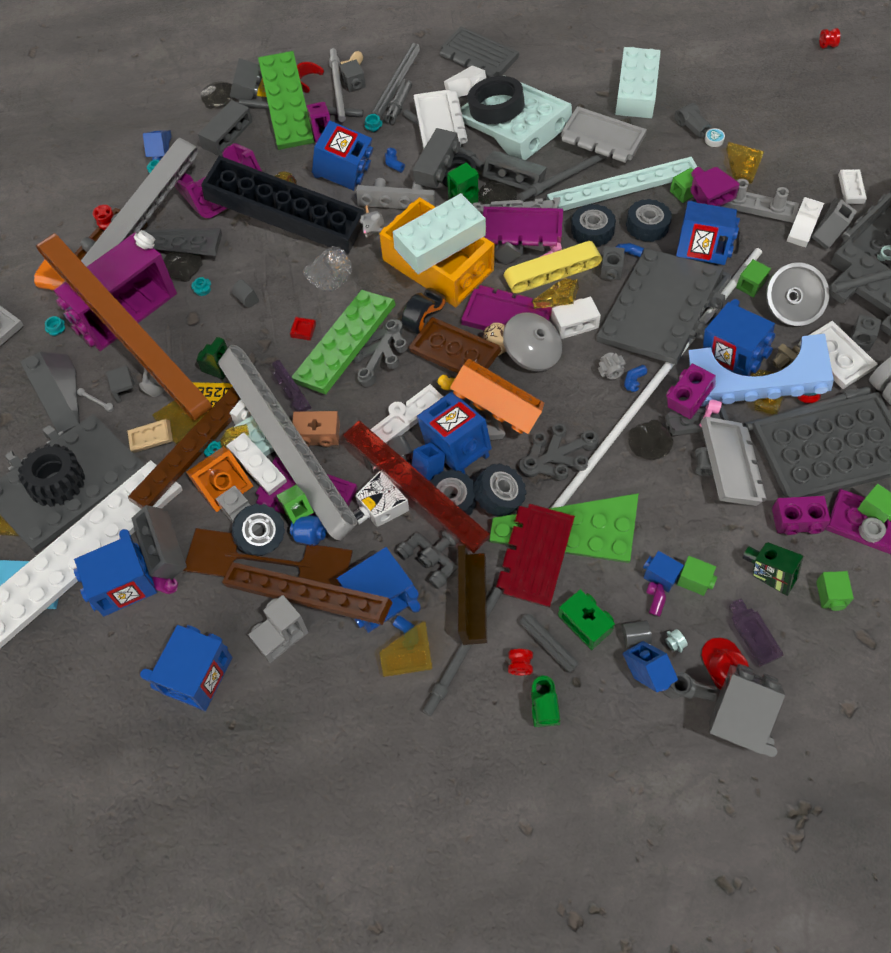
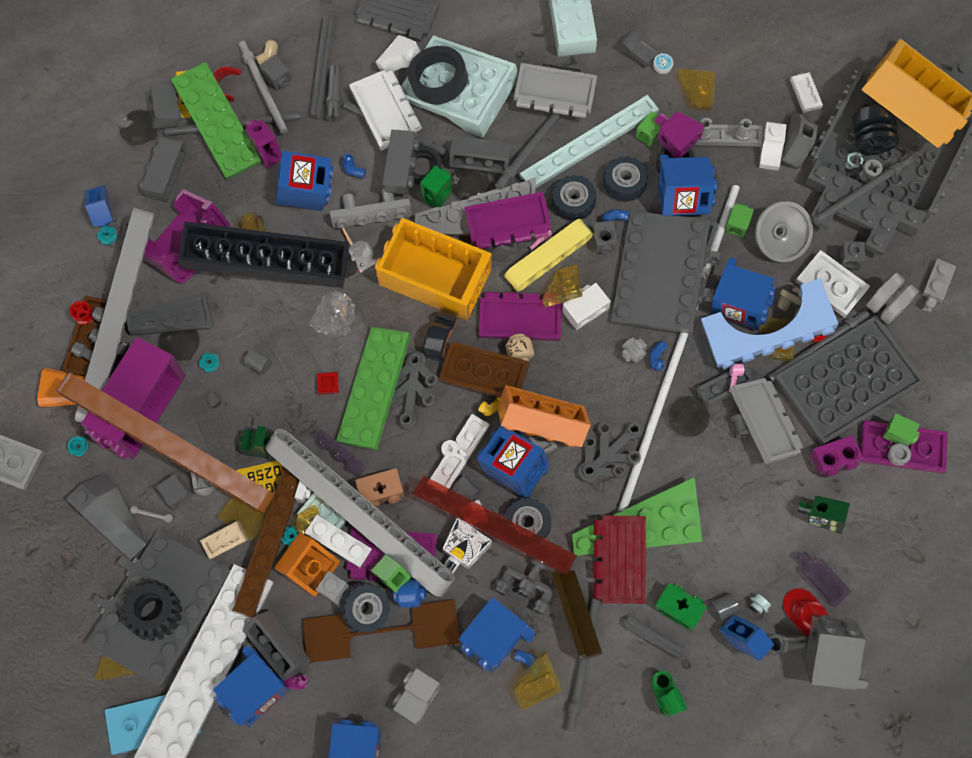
camera: 20 degrees left, 10 degrees up
(144, 240) = (153, 346): white plate -> none
(308, 593) = (434, 658): reddish brown plate -> none
(373, 122) = (316, 121): teal plate -> none
(428, 460) = (497, 496): blue brick -> none
(439, 233) = (438, 260): light aqua brick -> none
(499, 490) = (570, 506): black wheel -> none
(520, 662) = (635, 662): red wheel -> none
(532, 341) = (548, 350): light grey dish -> none
(658, 599) = (736, 569): magenta arm -> none
(662, 570) = (732, 543): blue brick -> none
(694, 392) = (719, 364): magenta brick -> none
(697, 576) = (763, 539): bright green brick -> none
(834, 590) = (880, 520): bright green brick -> none

